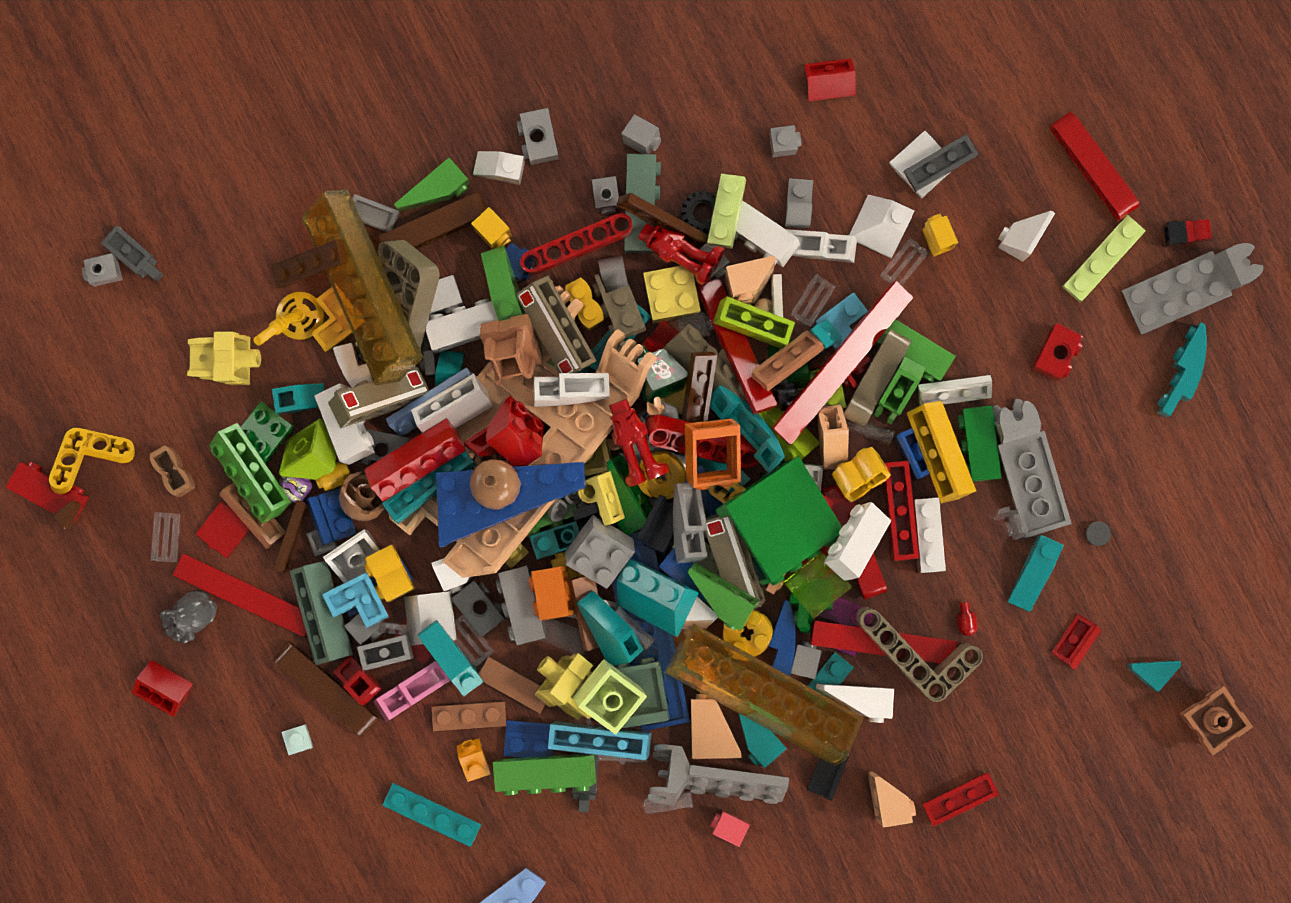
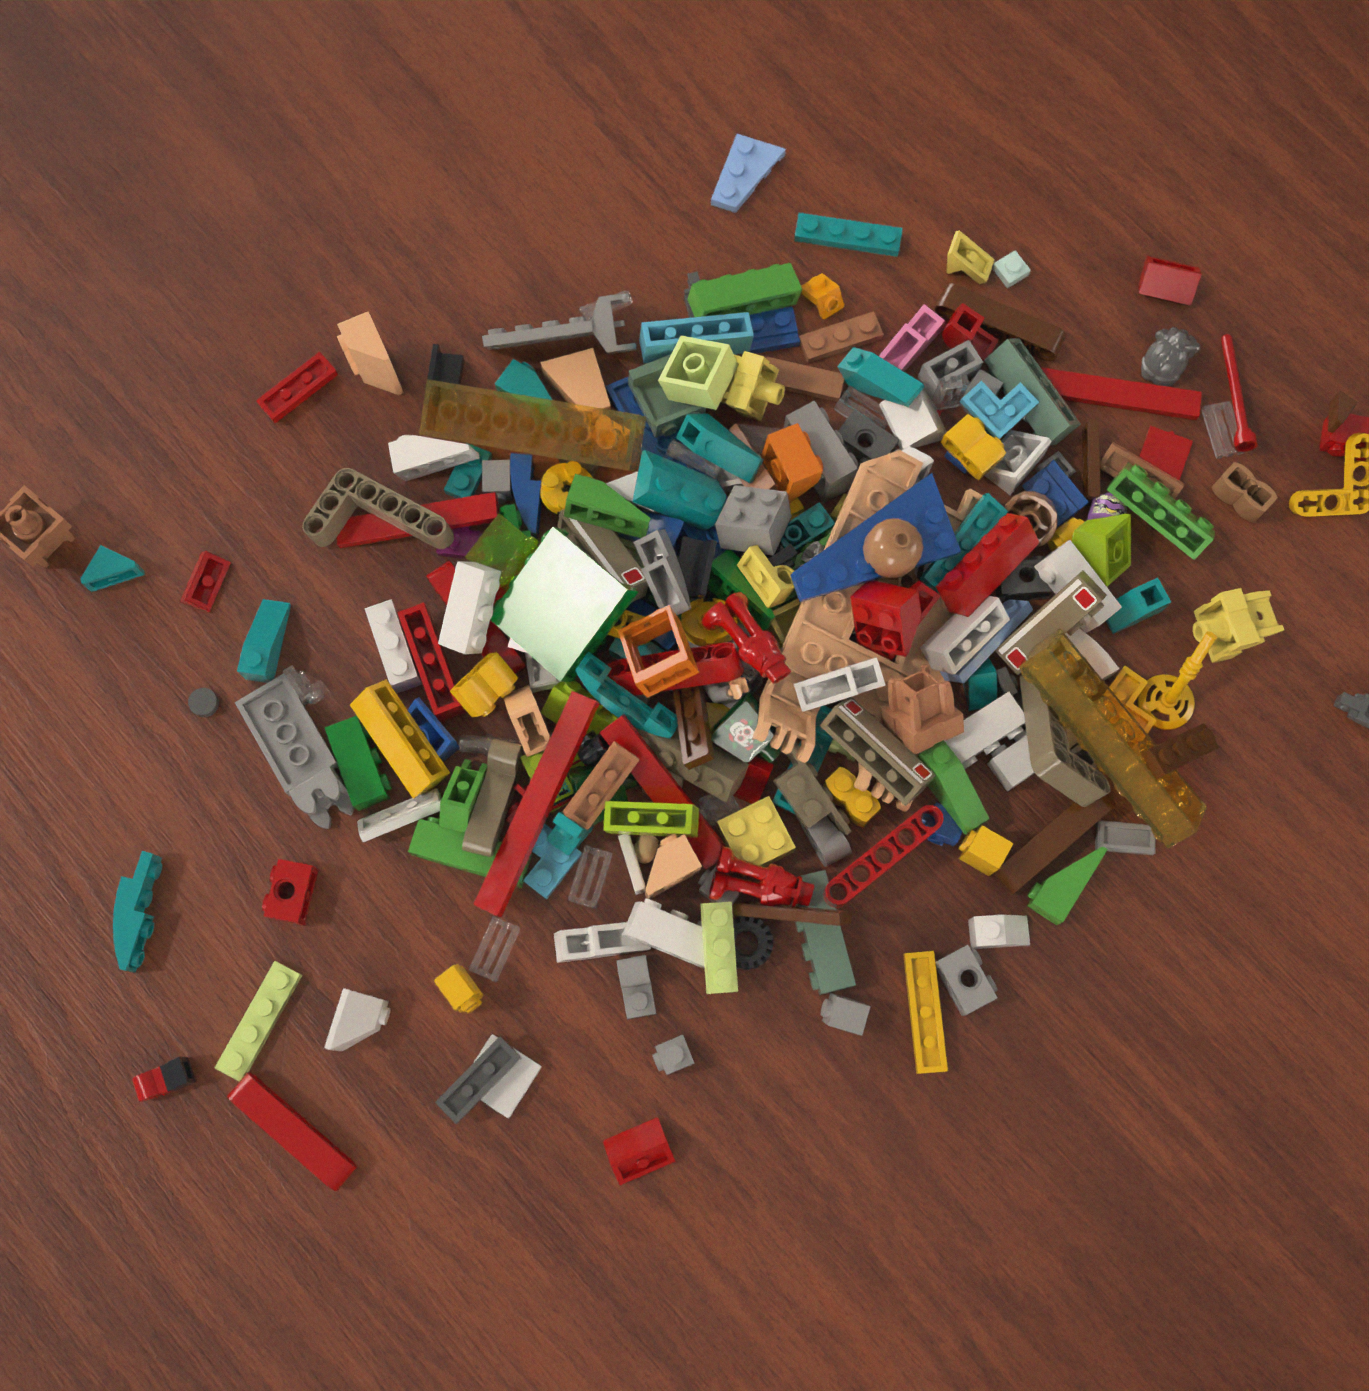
camera: 165 degrees right, 10 degrees down
(152, 521) = (1244, 438): none -> red piece
(266, 430) = (1159, 560): green hinge -> none
(333, 754) = (969, 258): none -> light yellow slope
(577, 121) = (925, 1012): none -> yellow plate
(605, 195) = (865, 932): light grey brick -> none
(729, 827) = (534, 295): coral brick -> none
(881, 224) = (532, 987): white slope -> none
(967, 620) = (331, 571): red cylinder -> none
(1190, 287) = (143, 1014): light grey hinge -> none

